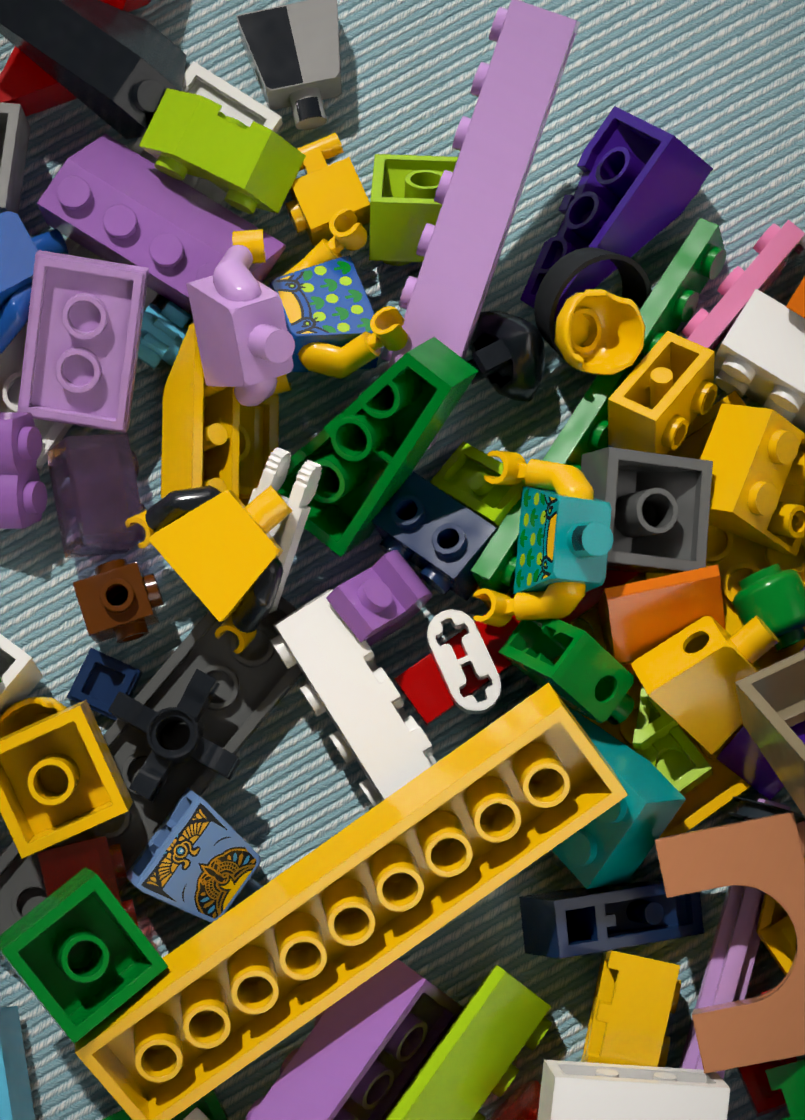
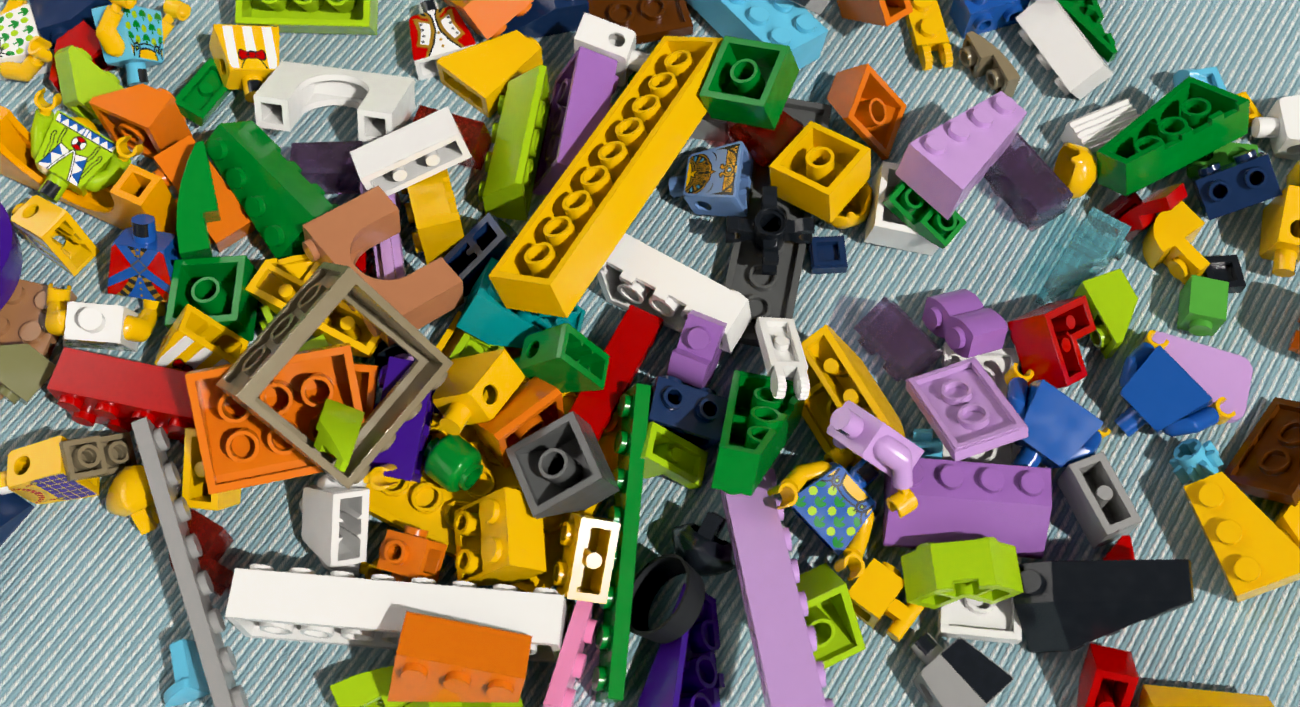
camera: 150 degrees right, 15 degrees down
(99, 595) = (848, 290): reddish brown brick -> none
(221, 551) = (806, 318): yellow torso -> none
(476, 656) = (632, 335): white beam -> none
(559, 541) = (606, 421): torso -> none
(599, 332) = (648, 566): yellow hair -> none

